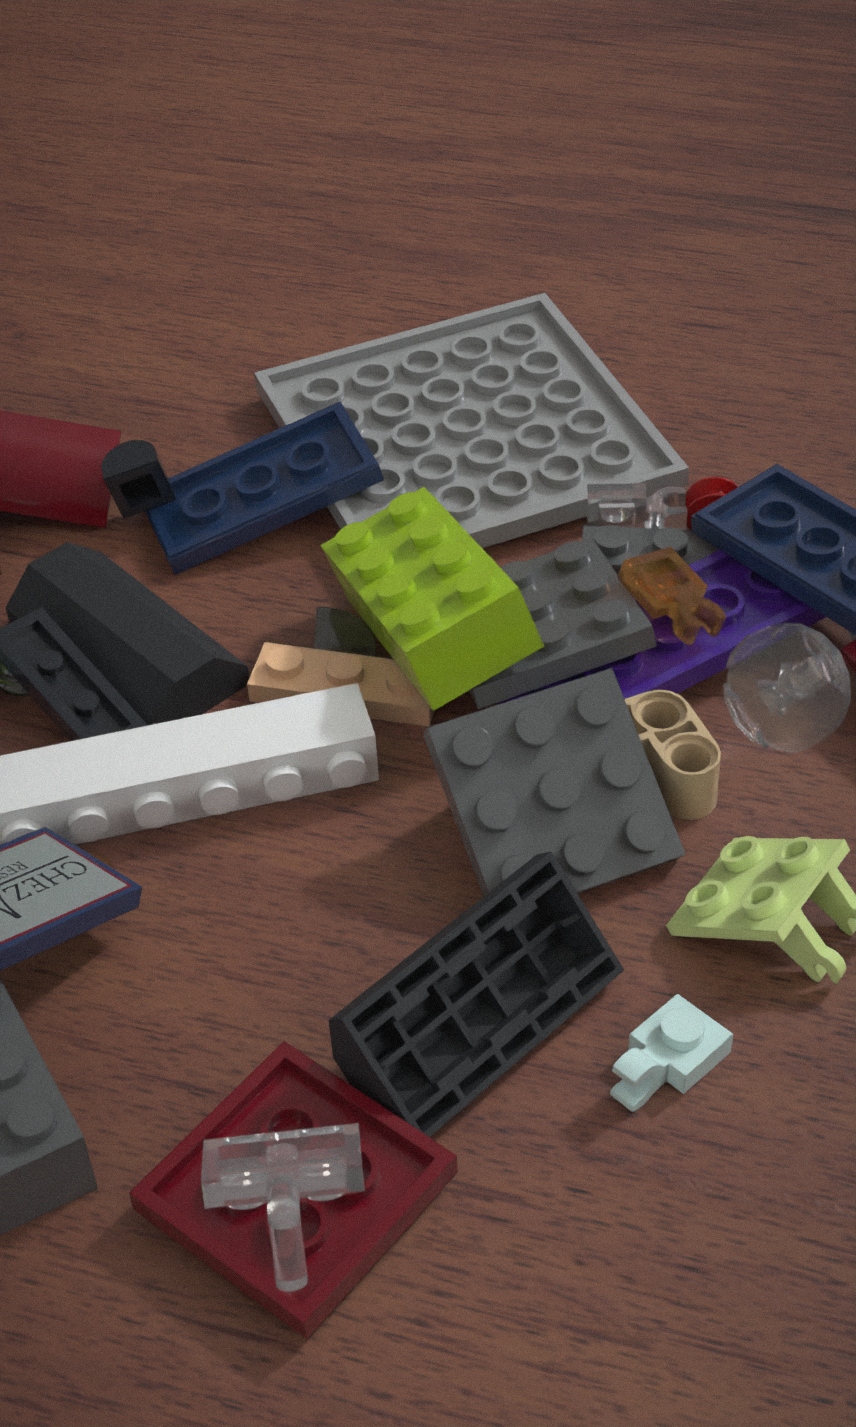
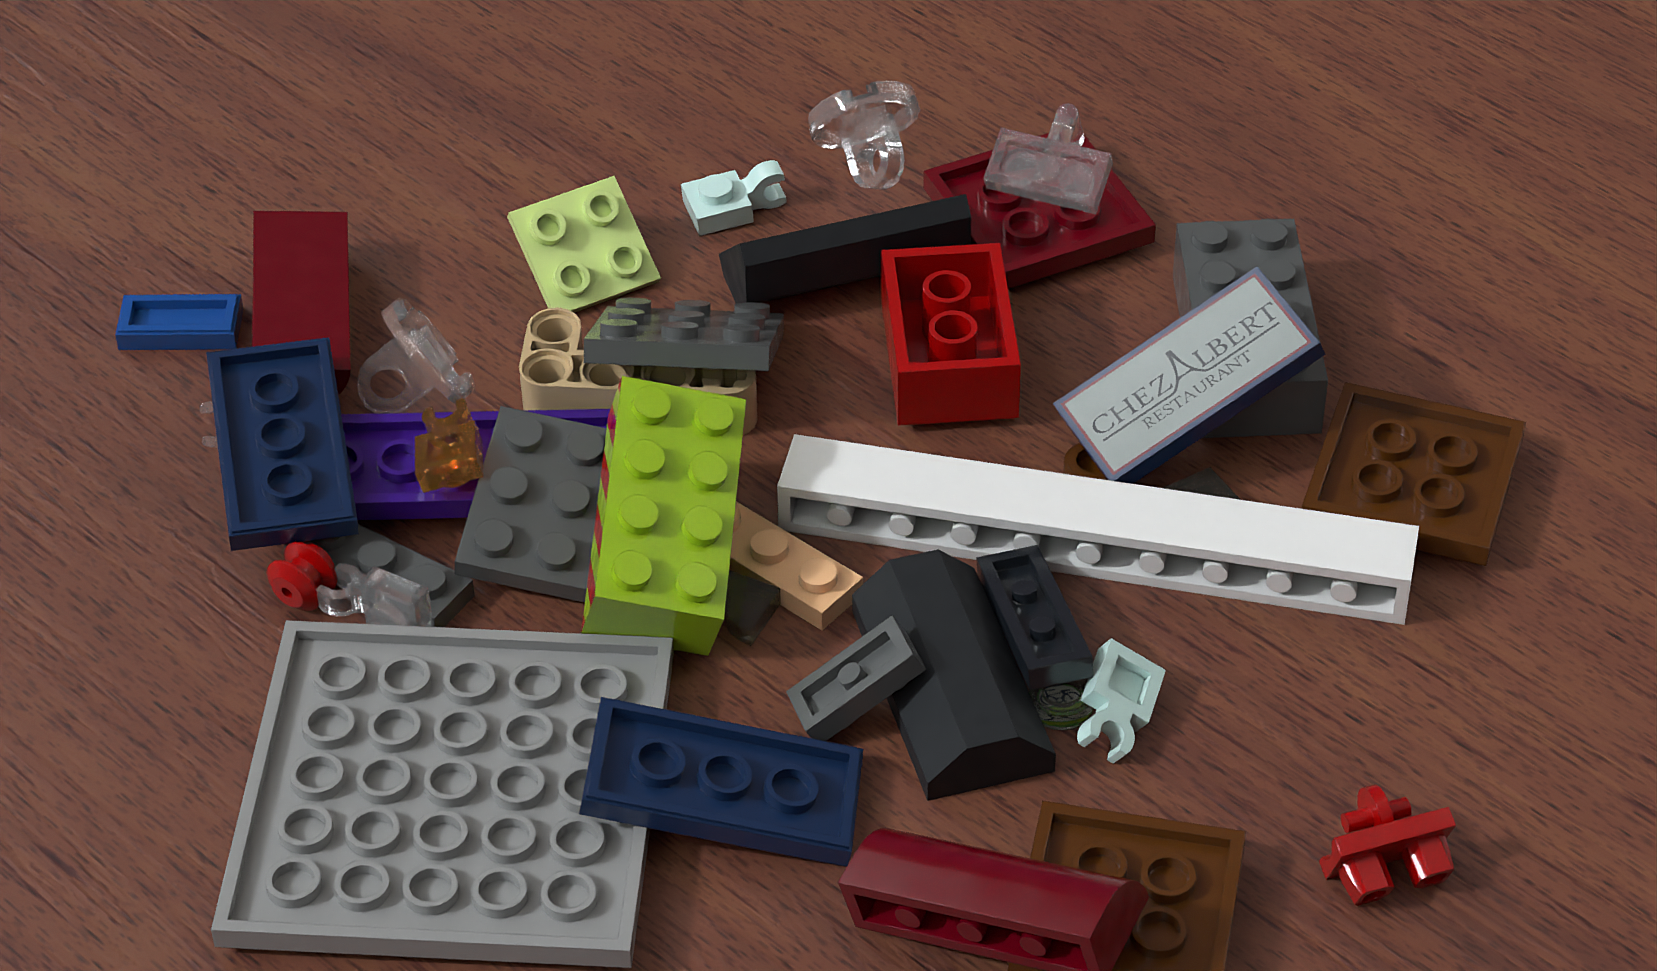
camera: 155 degrees left, 0 degrees up
(136, 478) = (851, 807): black brick -> none
(192, 577) = (855, 680): none -> dark grey plate
(290, 920) = (950, 334): none -> red brick
(565, 1172) = (867, 124): none -> clear tile

